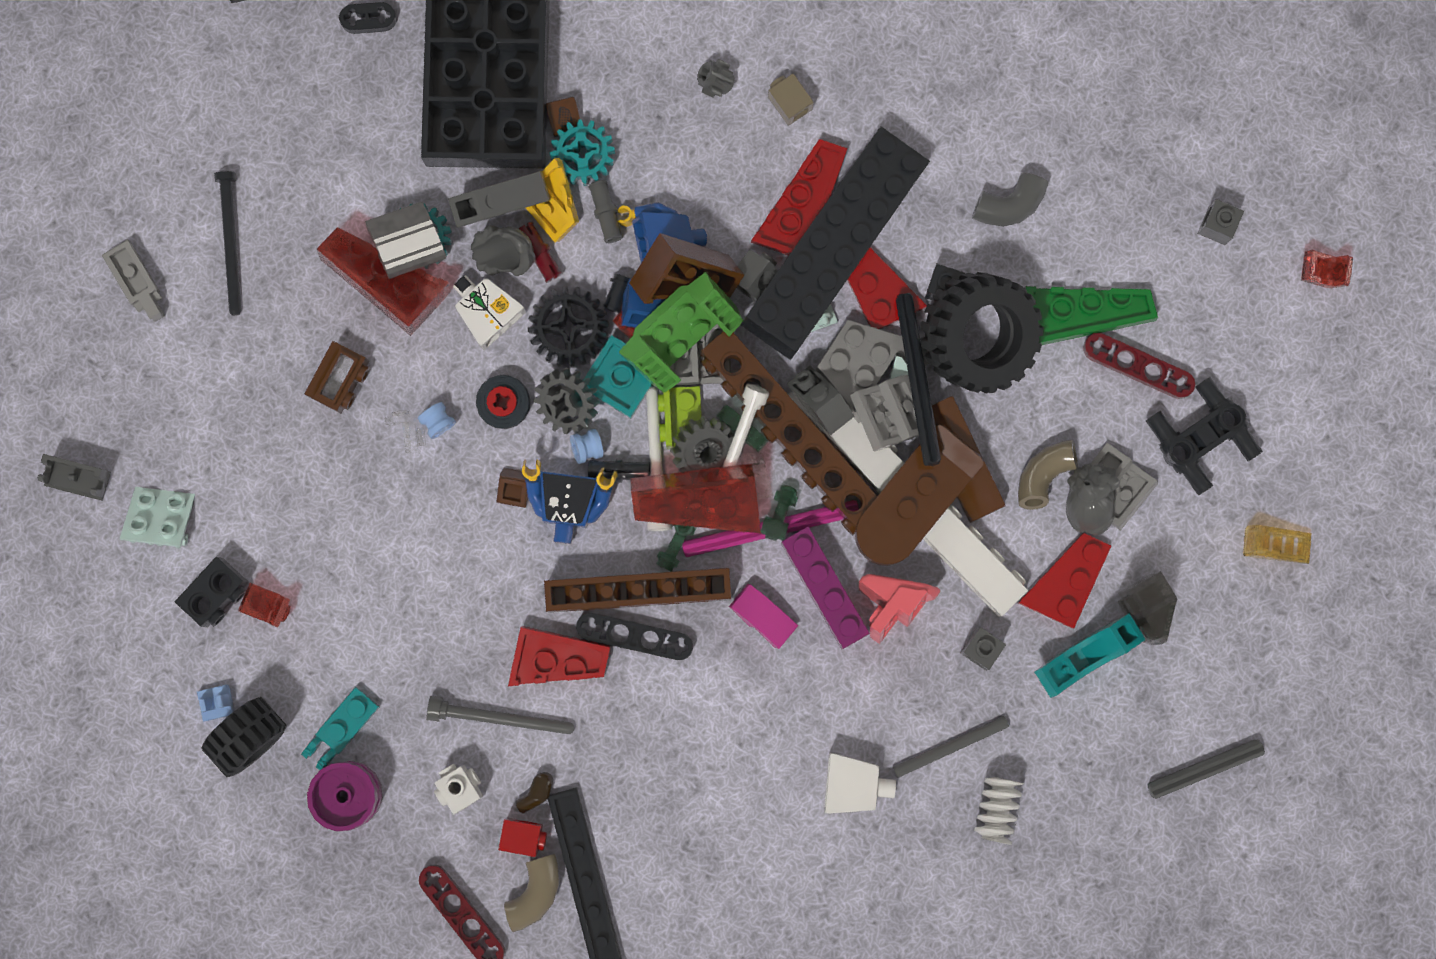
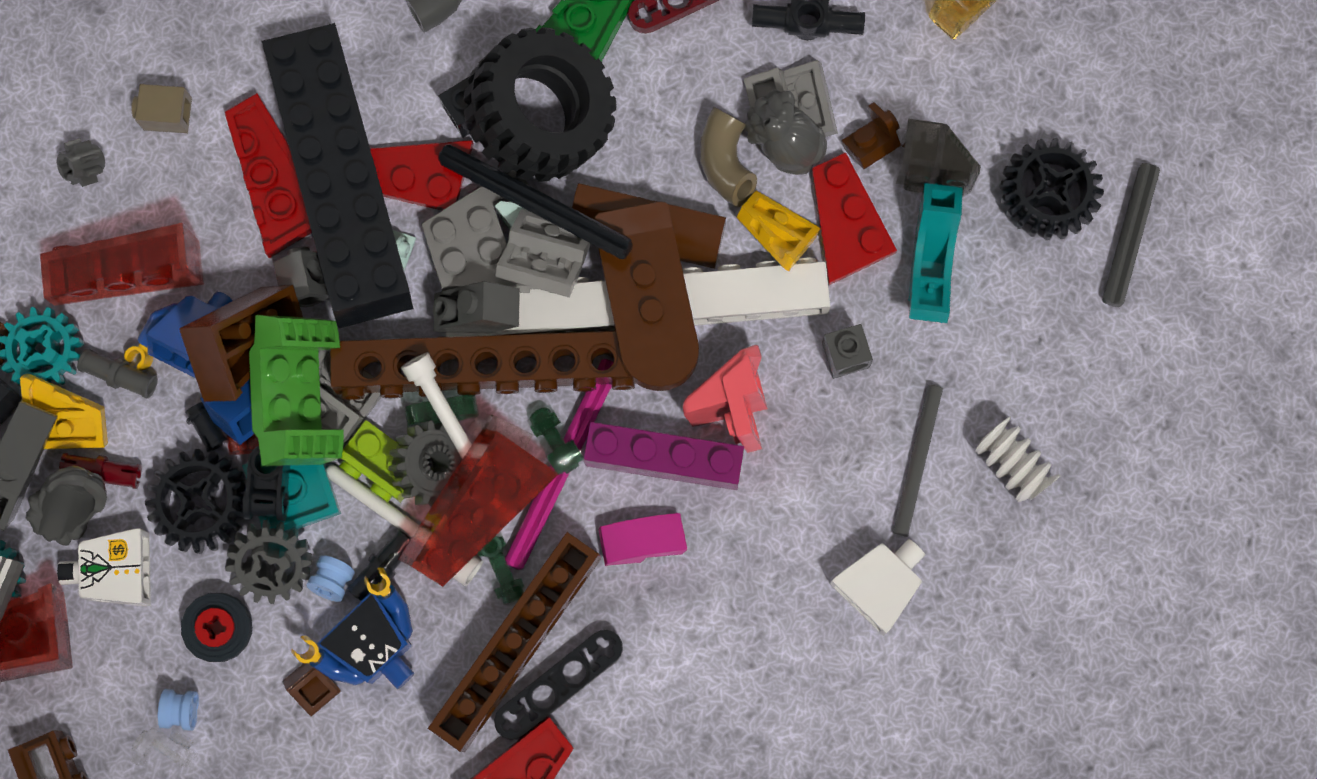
camera: 50 degrees left, 5 degrees down
(608, 362) = (265, 488): none -> black piece
(672, 159) = (122, 266): none -> clear red wedge
(1025, 543) = (777, 229): none -> yellow wing
(1134, 557) = (873, 139): none -> reddish brown bracket
(1199, 682) = (1038, 162): none -> black gear

